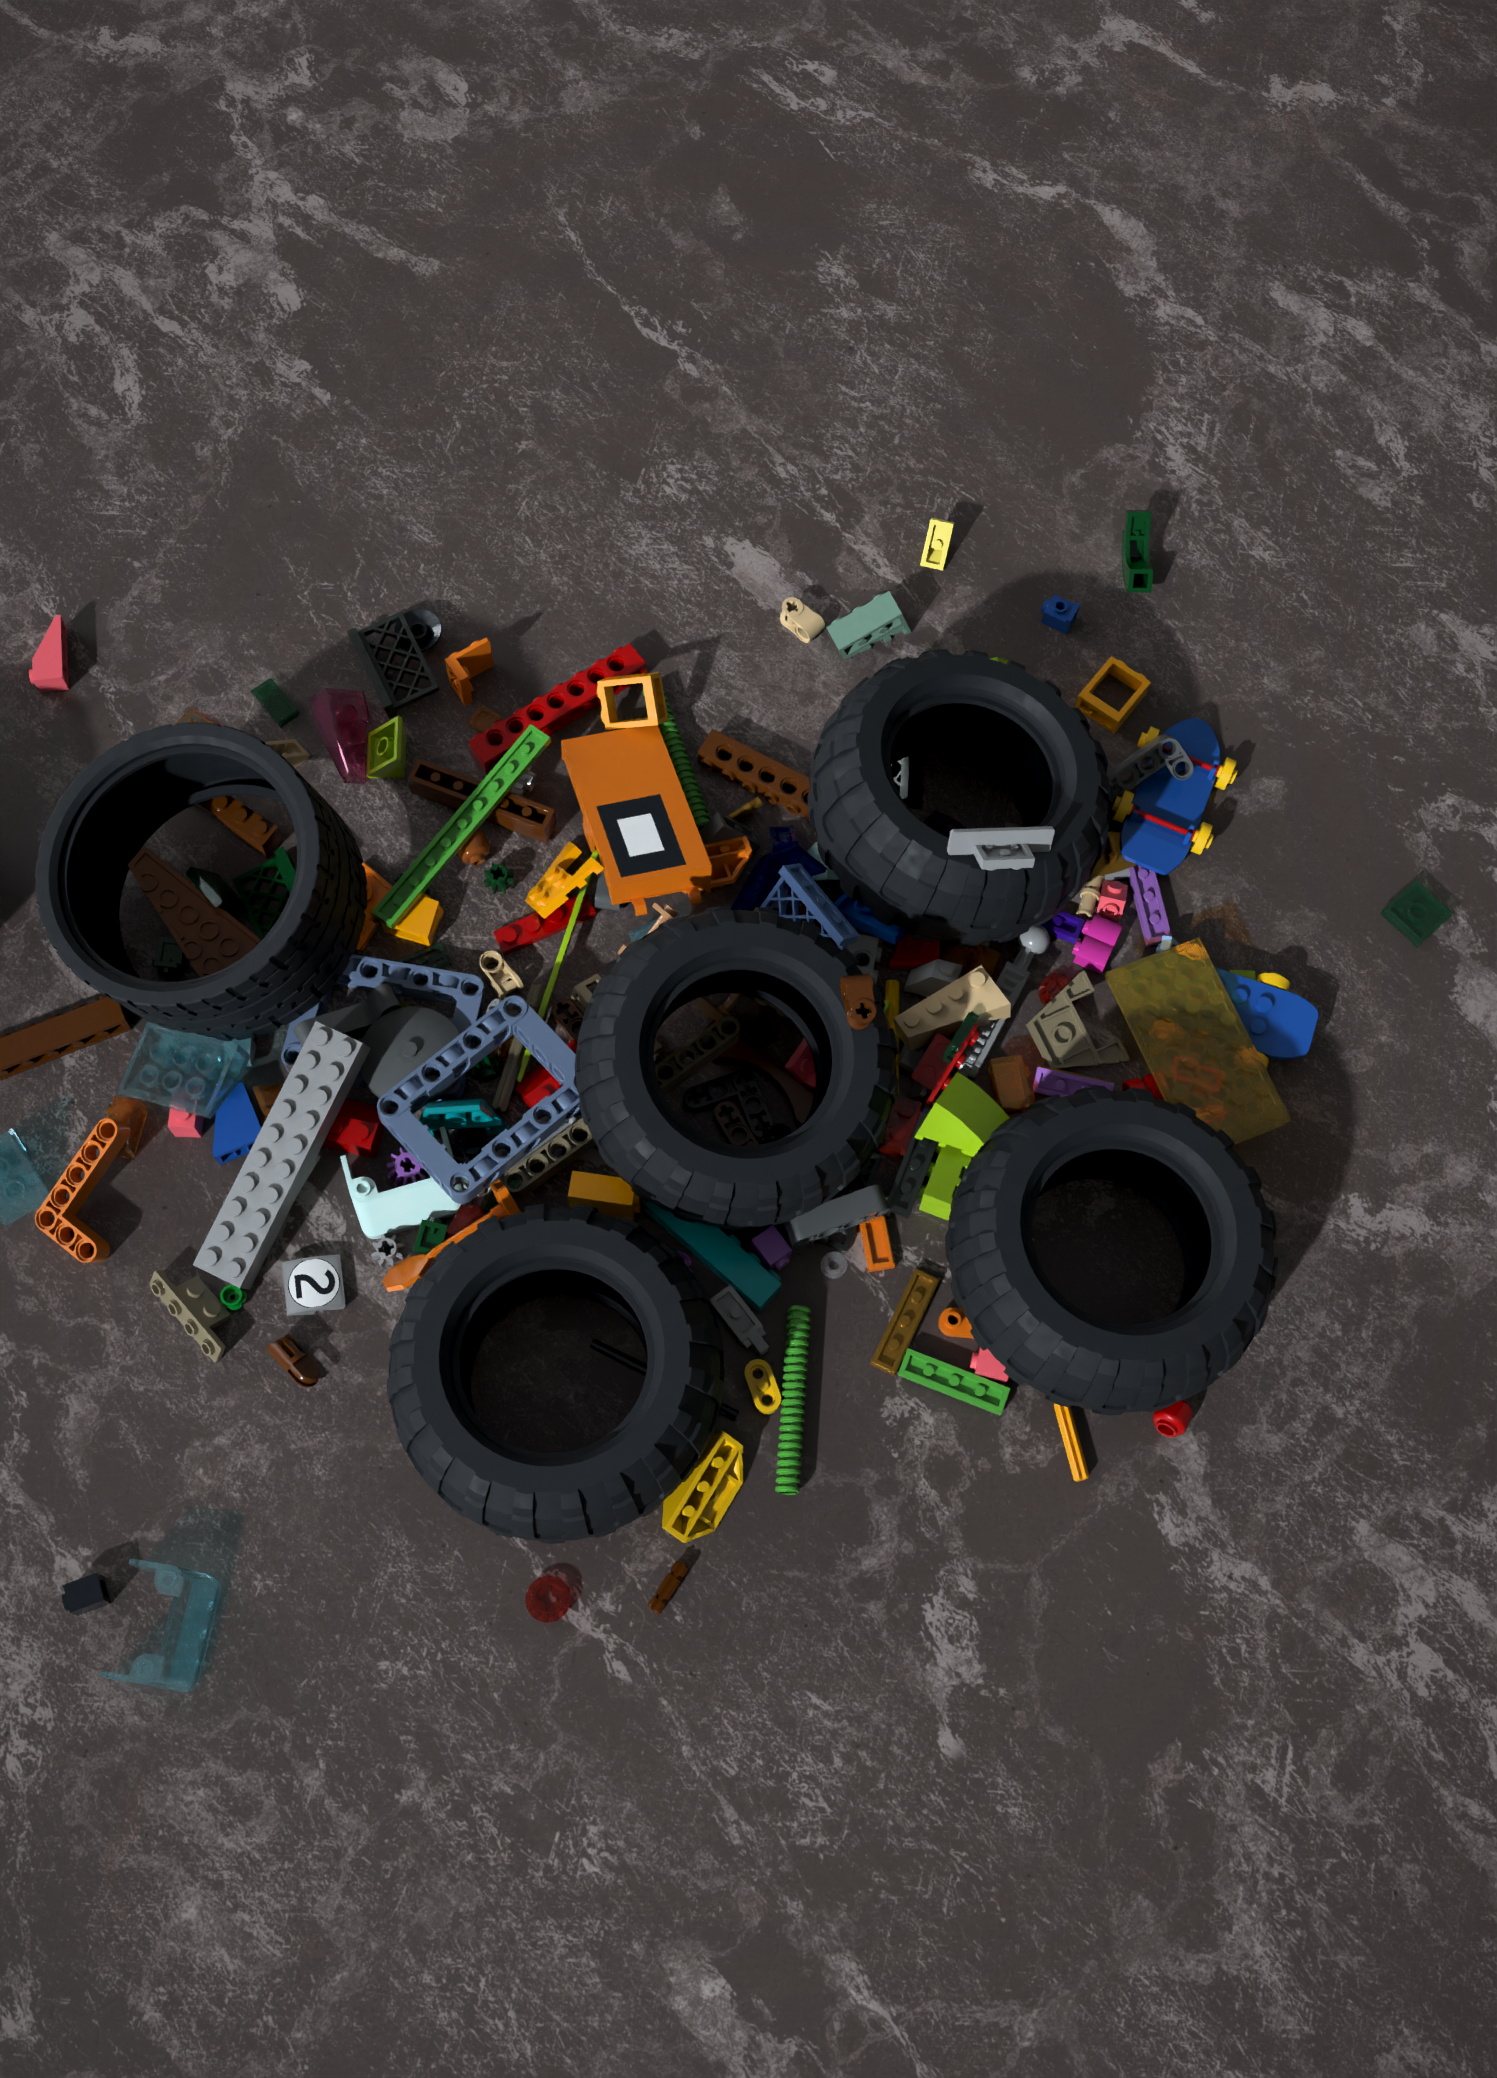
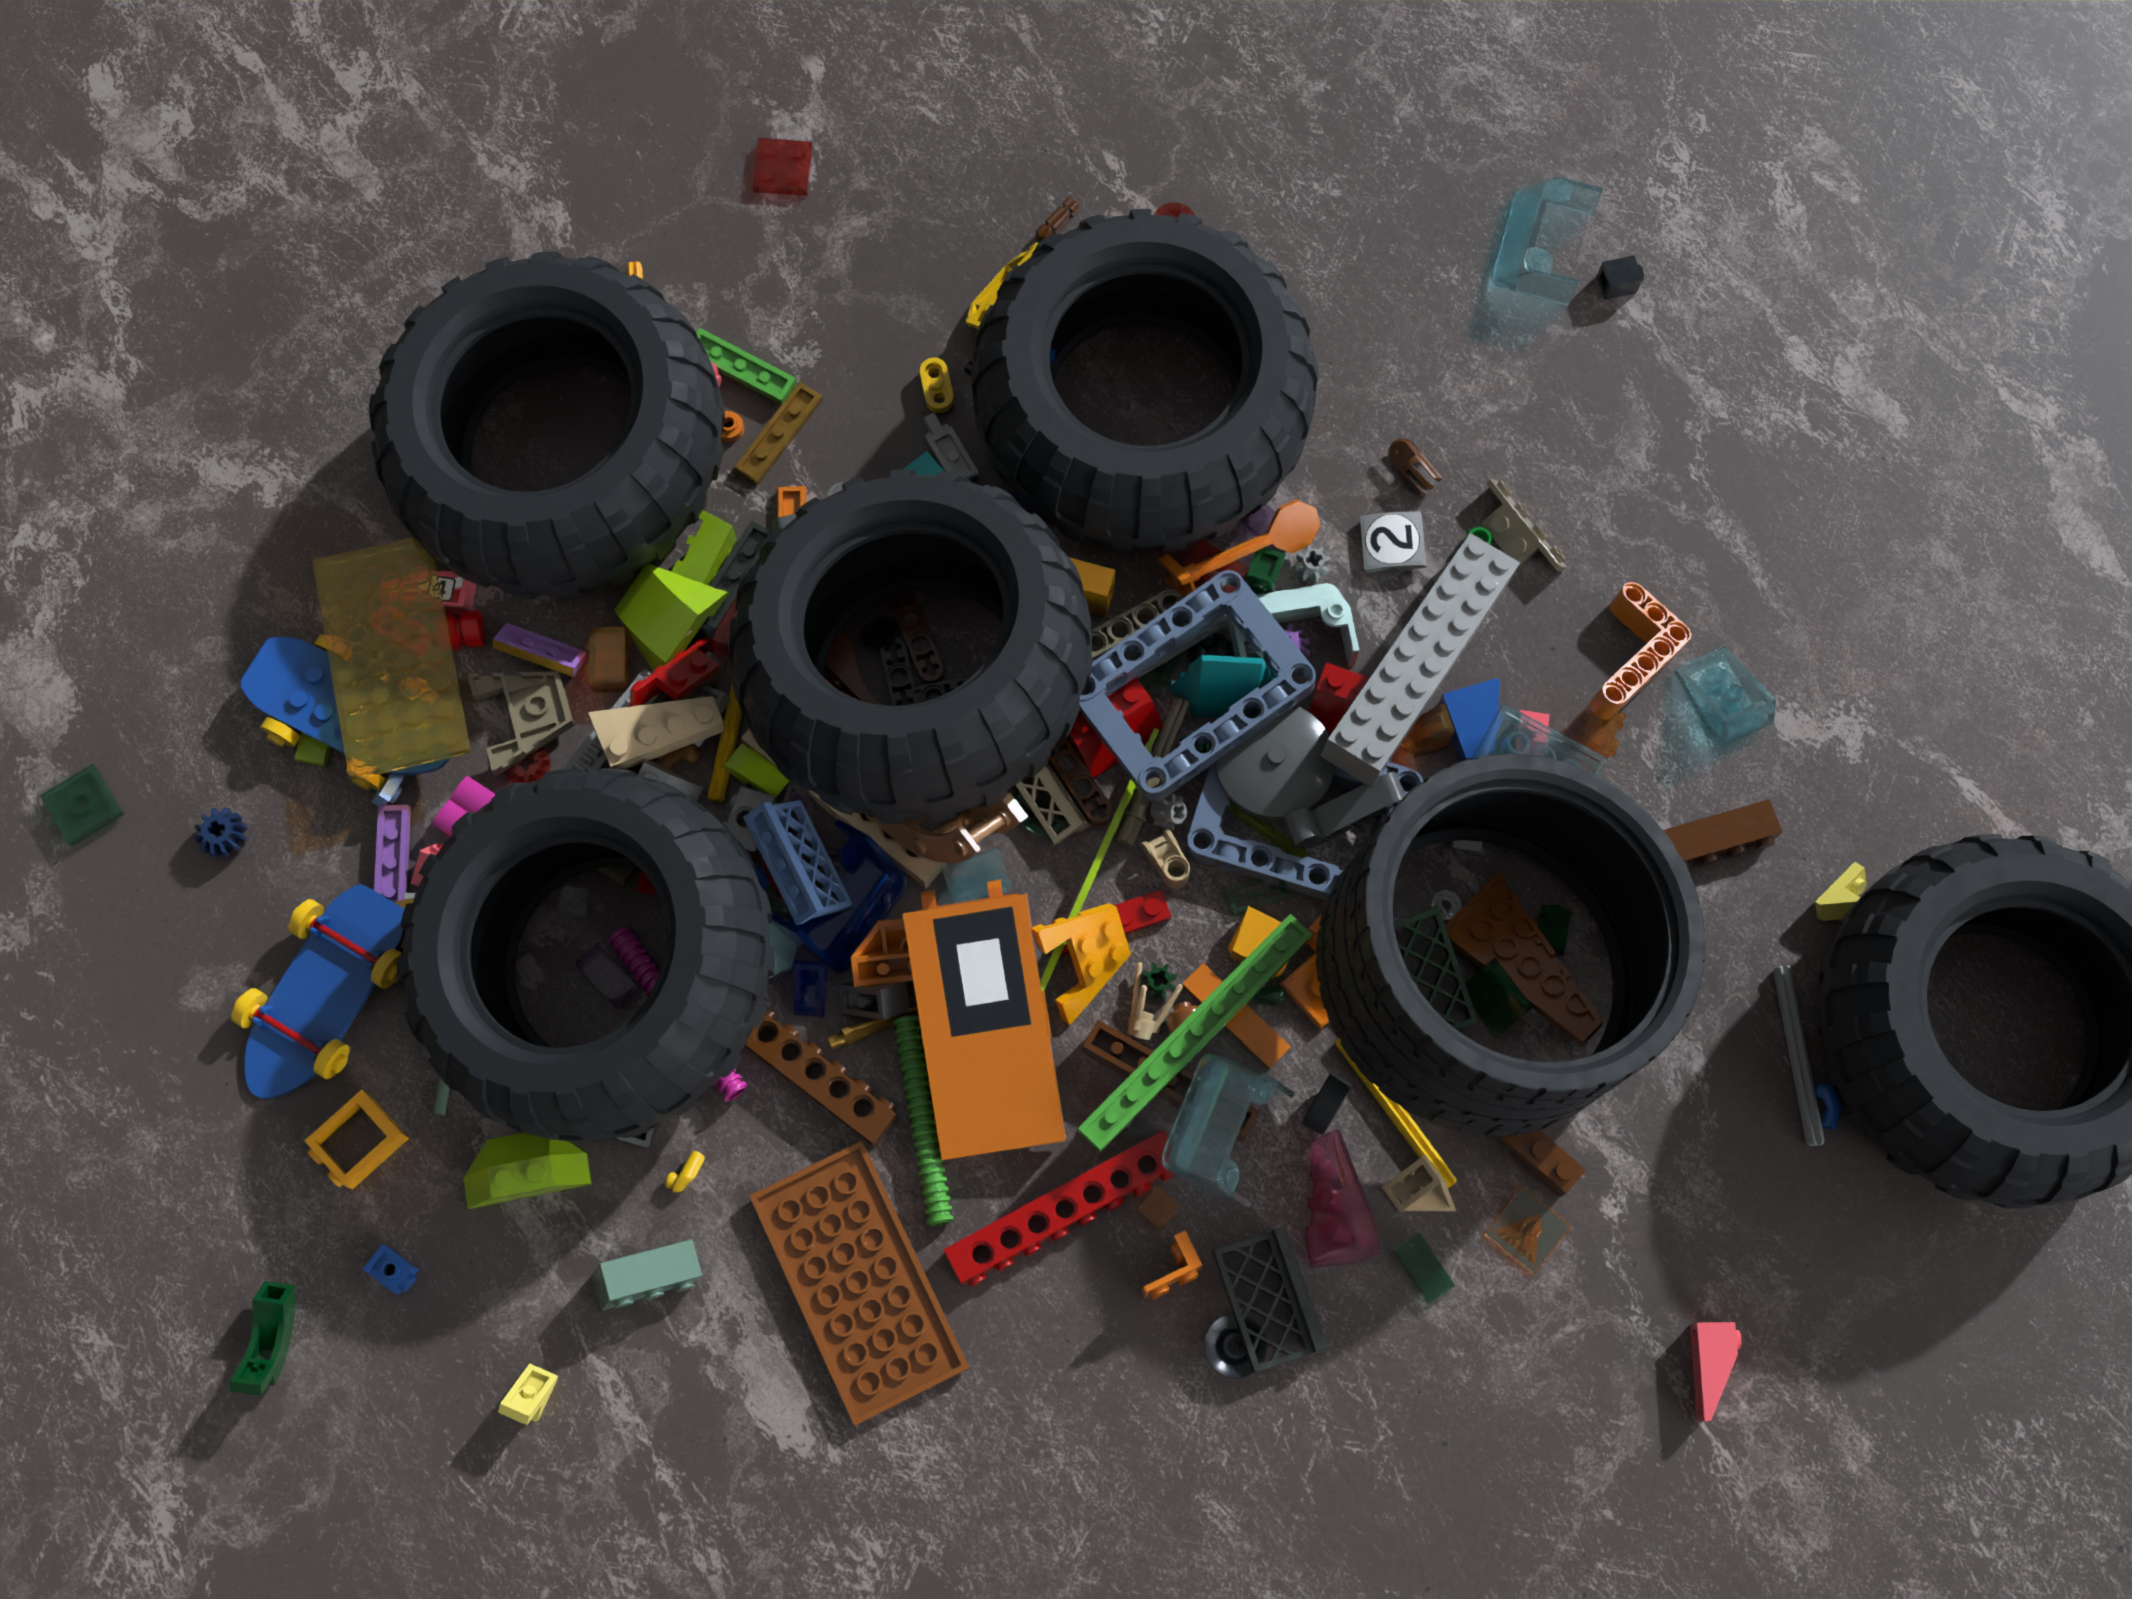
camera: 170 degrees left, 5 degrees up
(355, 796) = (1326, 1104): none -> black tyre
(387, 750) = (1285, 1174): lime slope -> none
(440, 764) = (1211, 1122): none -> clear light blue windscreen
(452, 878) = (1245, 1025): none -> orange tile
(509, 847) = (1141, 1022): none -> tan plant
(653, 697) = (964, 1203): light orange window -> none
(709, 645) = (859, 1283): none -> dark orange plate
(793, 1400) = (907, 369): bright green piece -> none
(802, 621) = (728, 1297): tan piece -> none
(858, 995) = (763, 636): reddish brown piece -> none
(957, 1612) = (783, 166): none -> clear red plate
(959, 1037) = (654, 677): clear green tile -> none
(1001, 846) = (557, 799): light grey bracket -> none
(1158, 760) = (345, 1020): dark grey beam -> none
(1294, 903) = (211, 828): none -> dark blue gear

